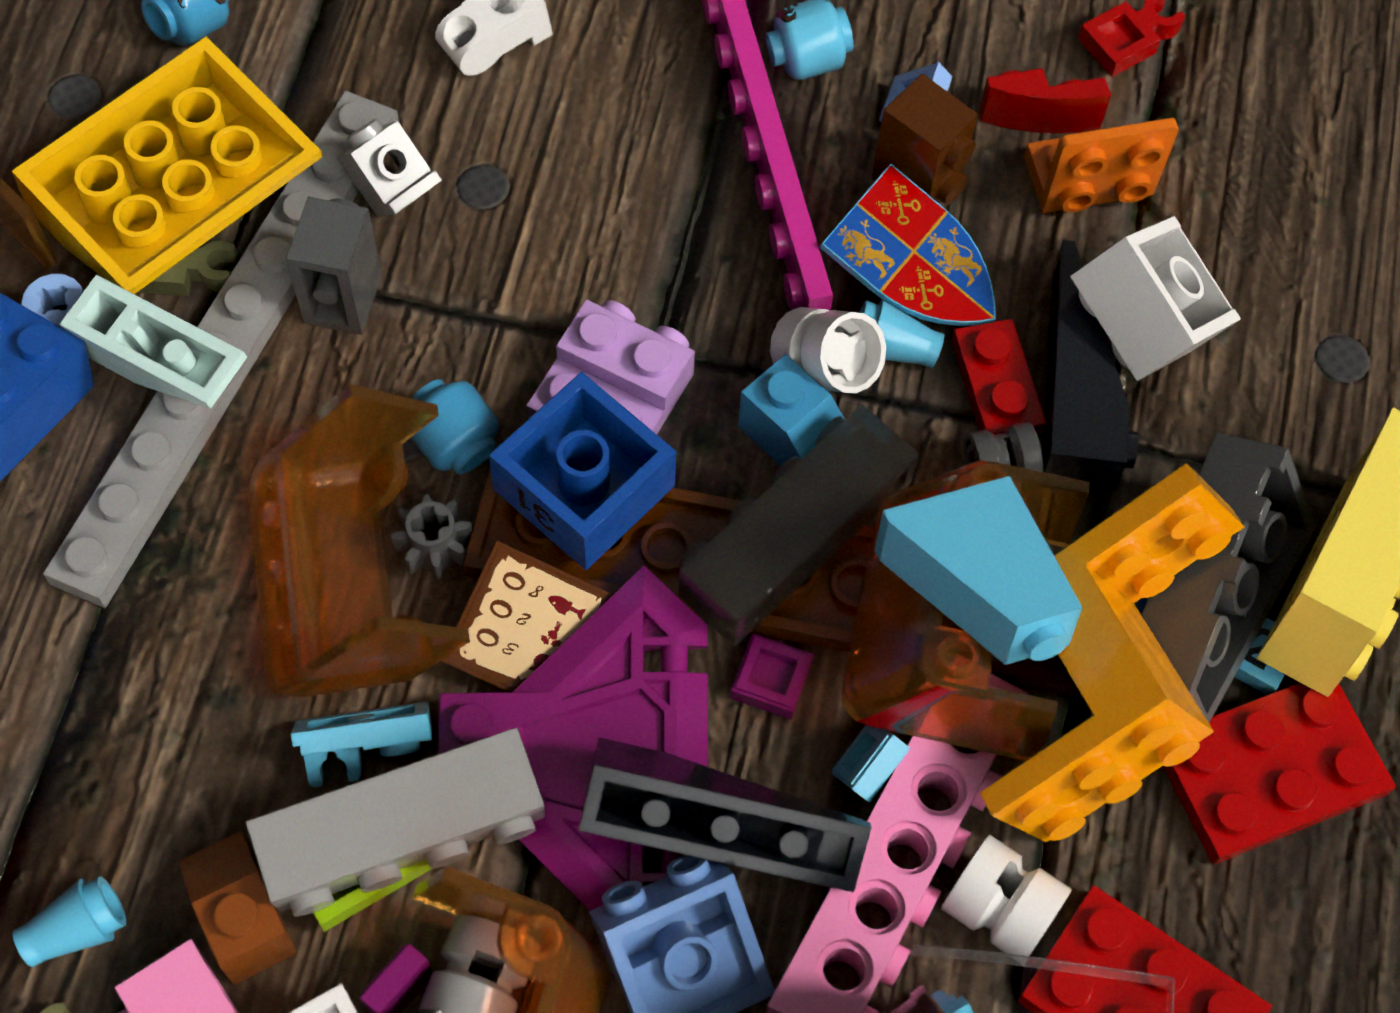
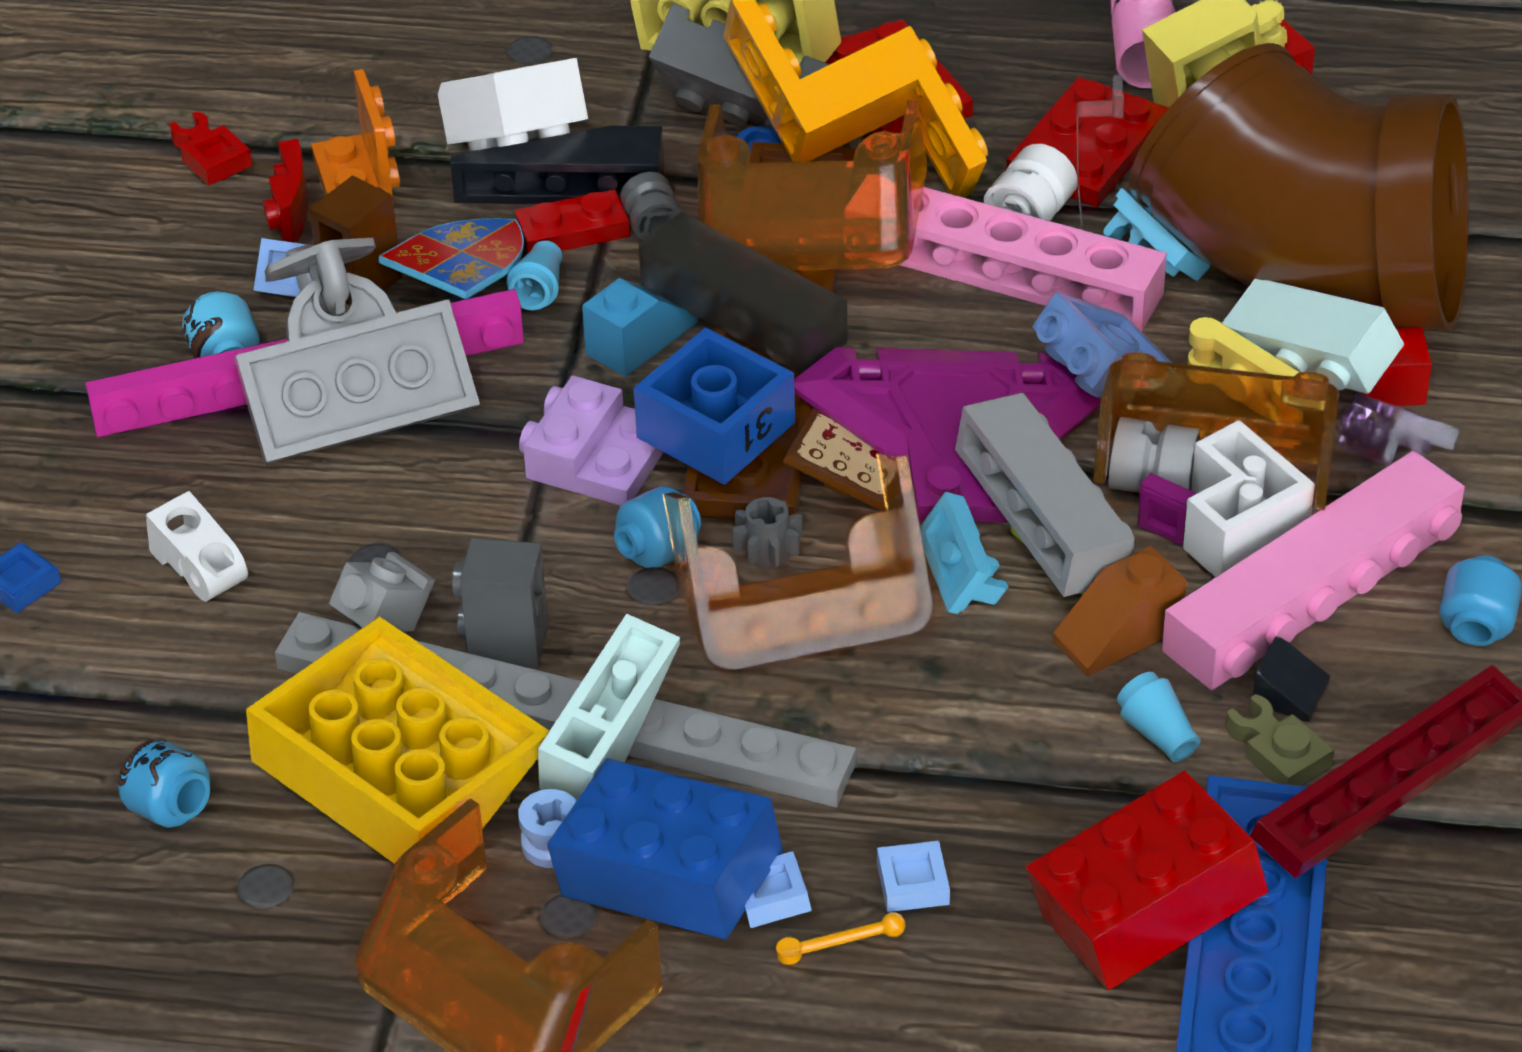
camera: 90 degrees left, 20 degrees down
(718, 817) = (1007, 320): black slope -> none
(727, 126) = (351, 370): none -> light grey plate
(771, 676) = (868, 333): magenta tile -> none
(833, 346) = (569, 284): white wheel -> none
(870, 761) = (934, 263): medium azure tile -> none
(983, 568) = (813, 121): medium azure slope -> none

